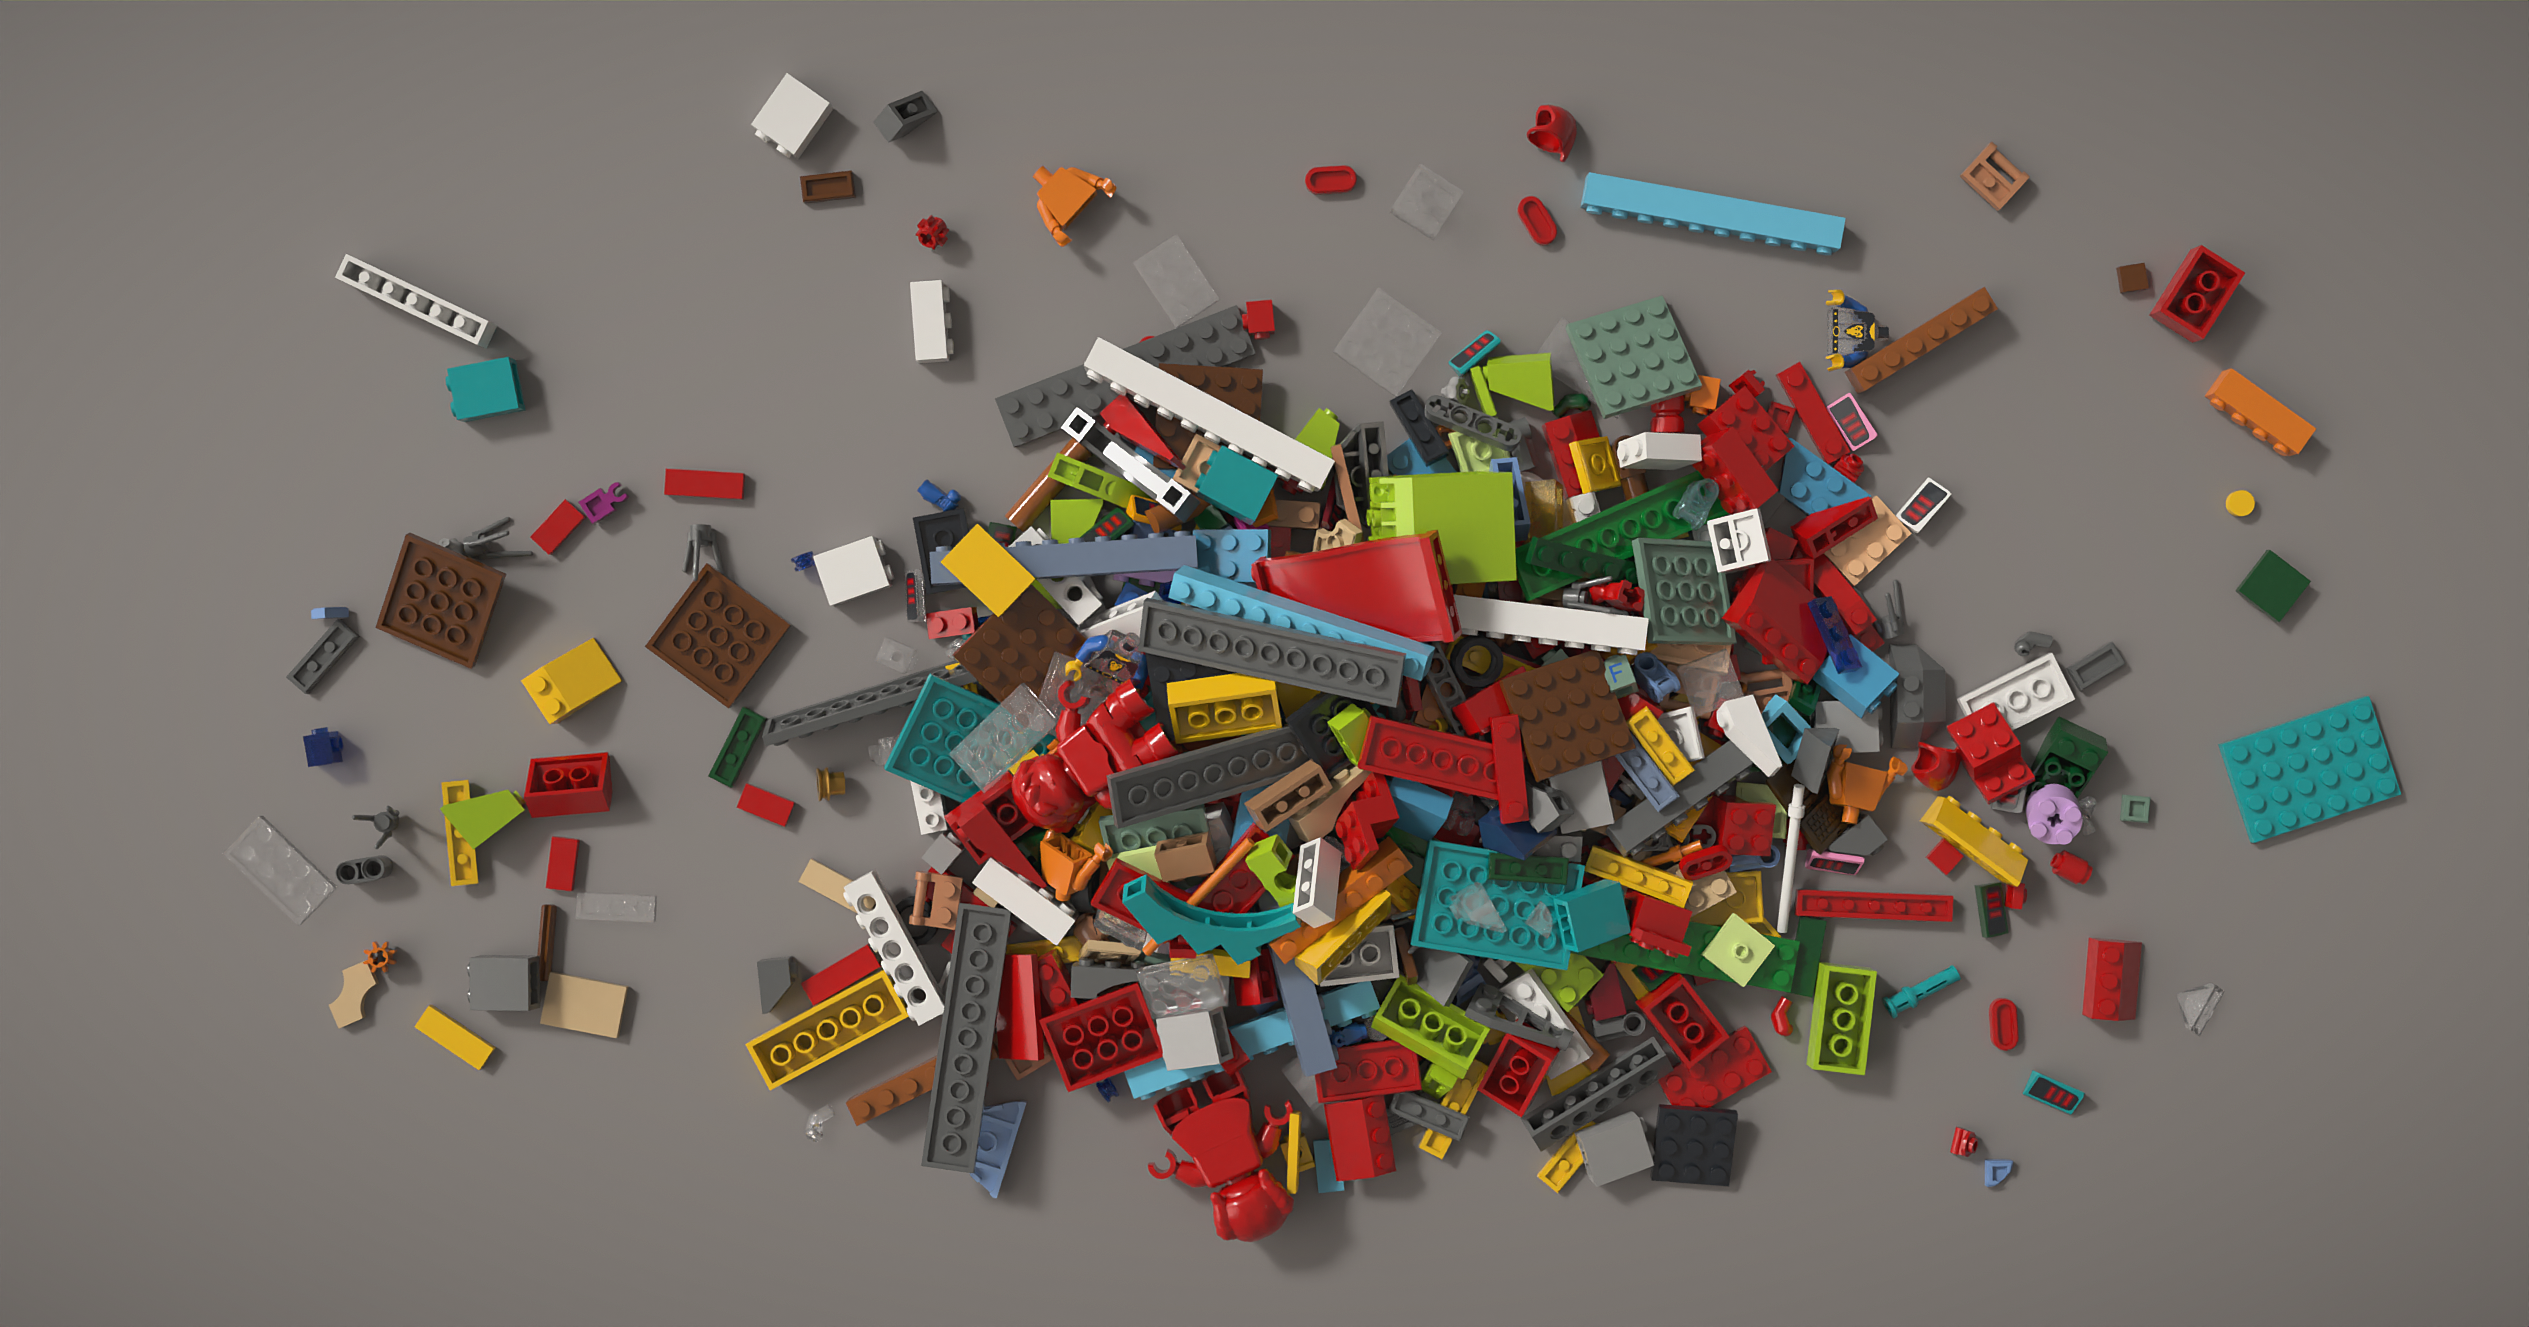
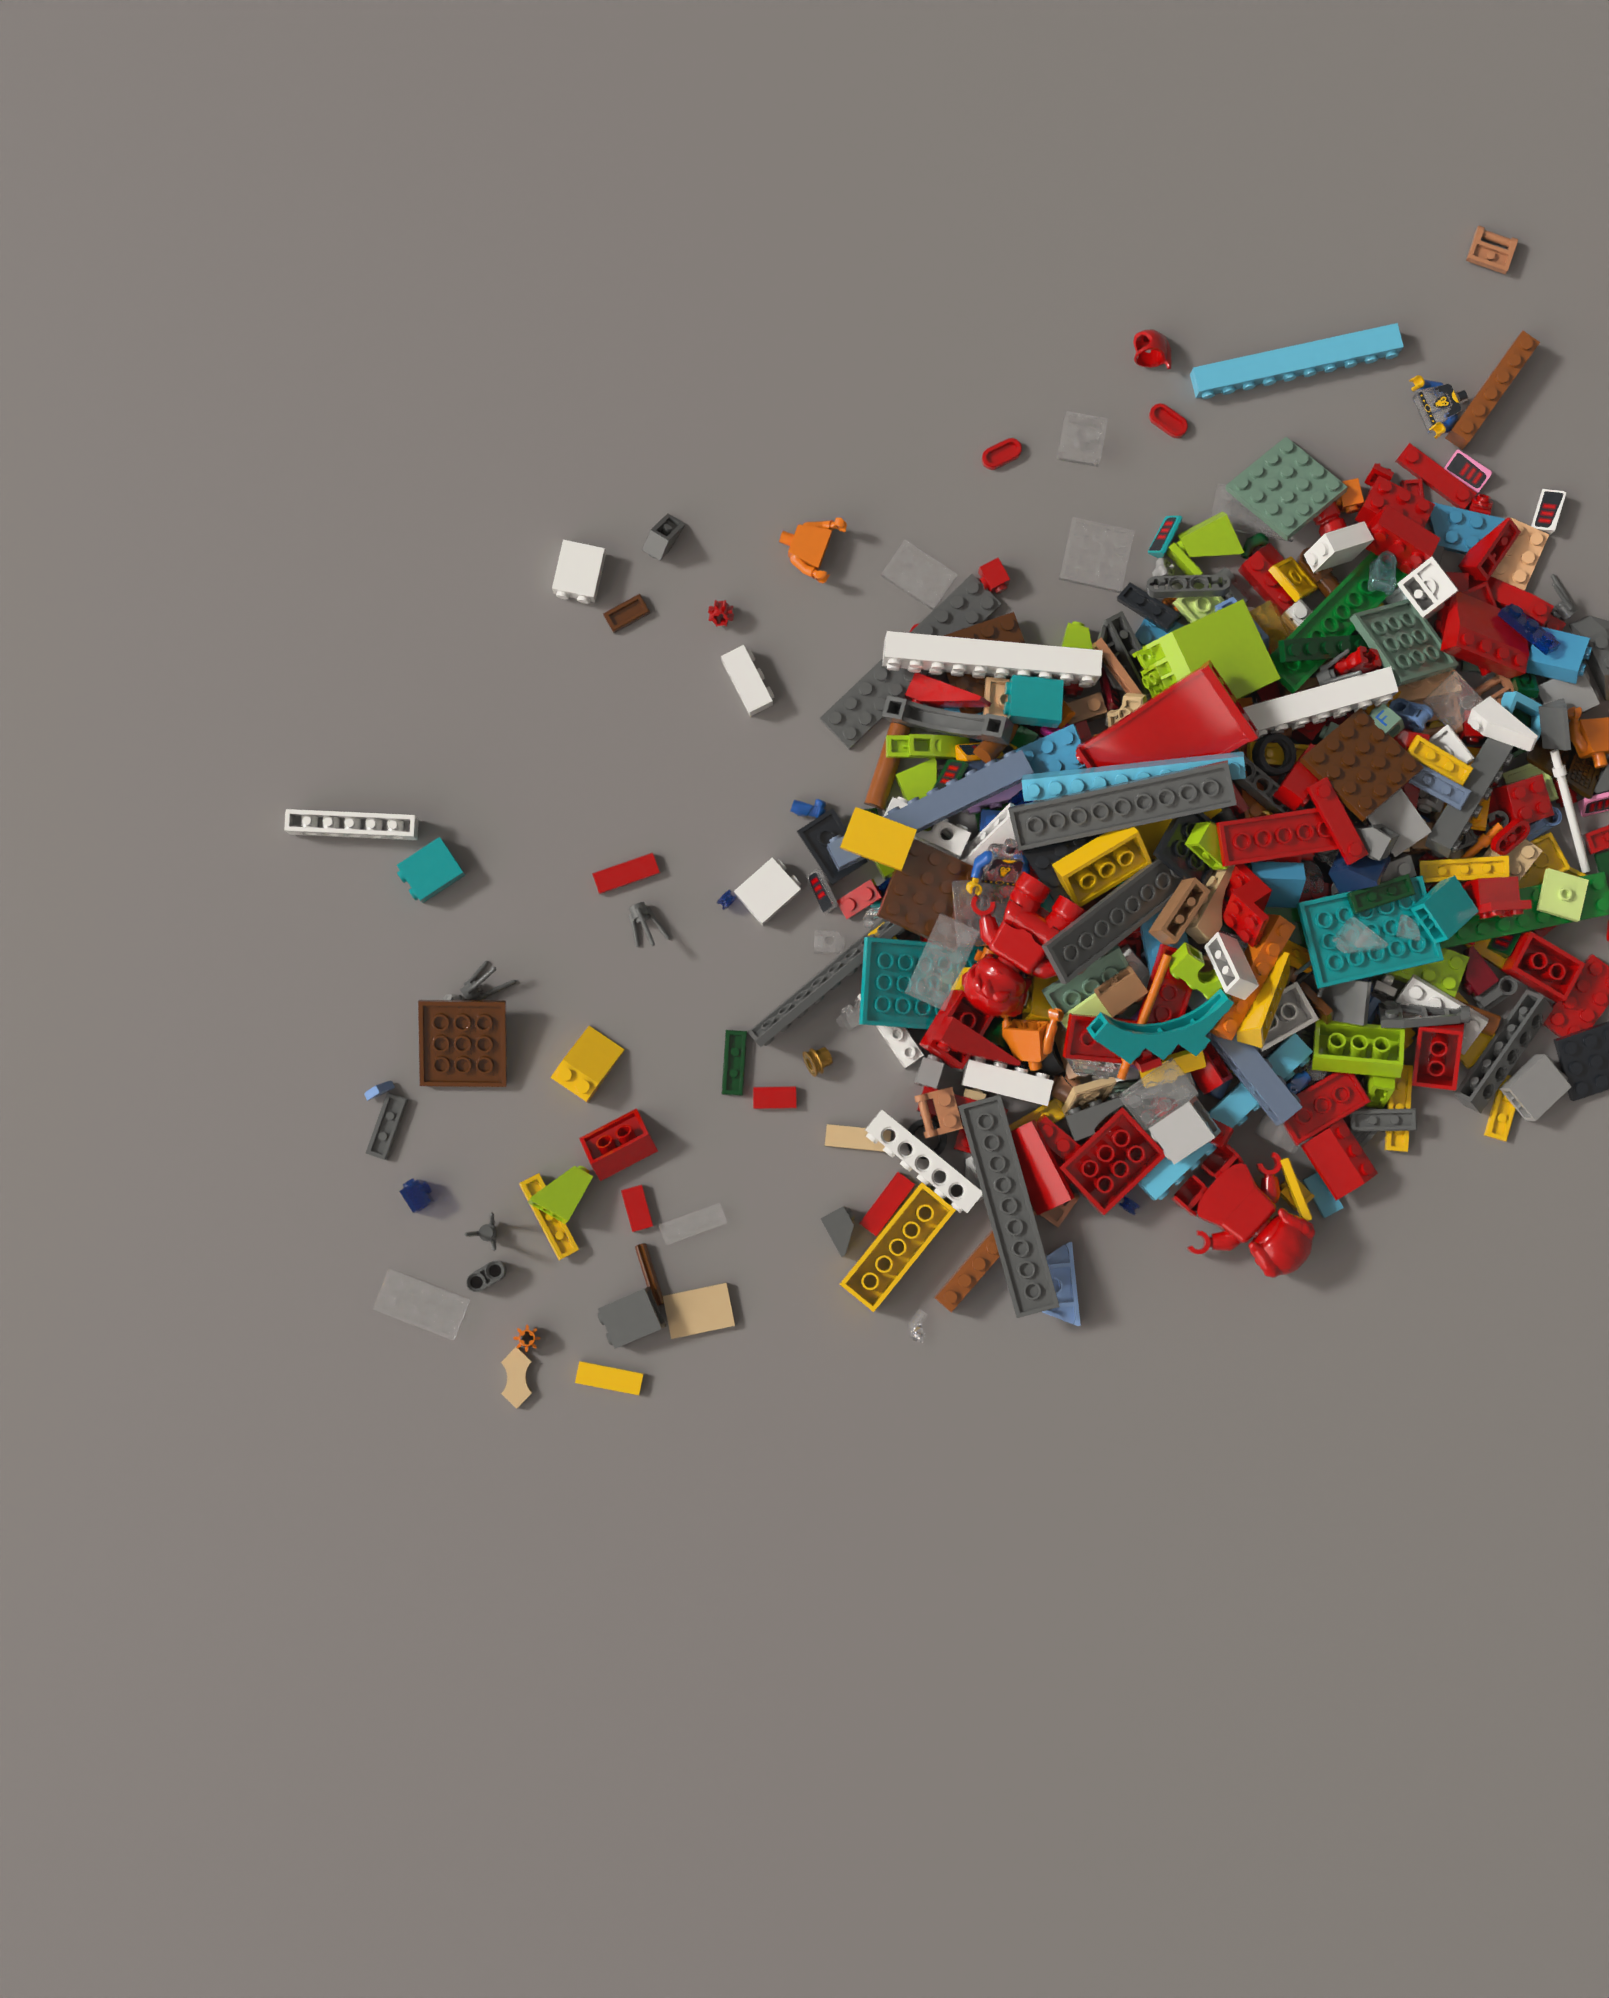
camera: 25 degrees left, 5 degrees down
(558, 527) = (527, 952): red tile -> none
(600, 504) = (552, 920): magenta plate -> none
(718, 635) = (685, 983): reddish brown plate -> none

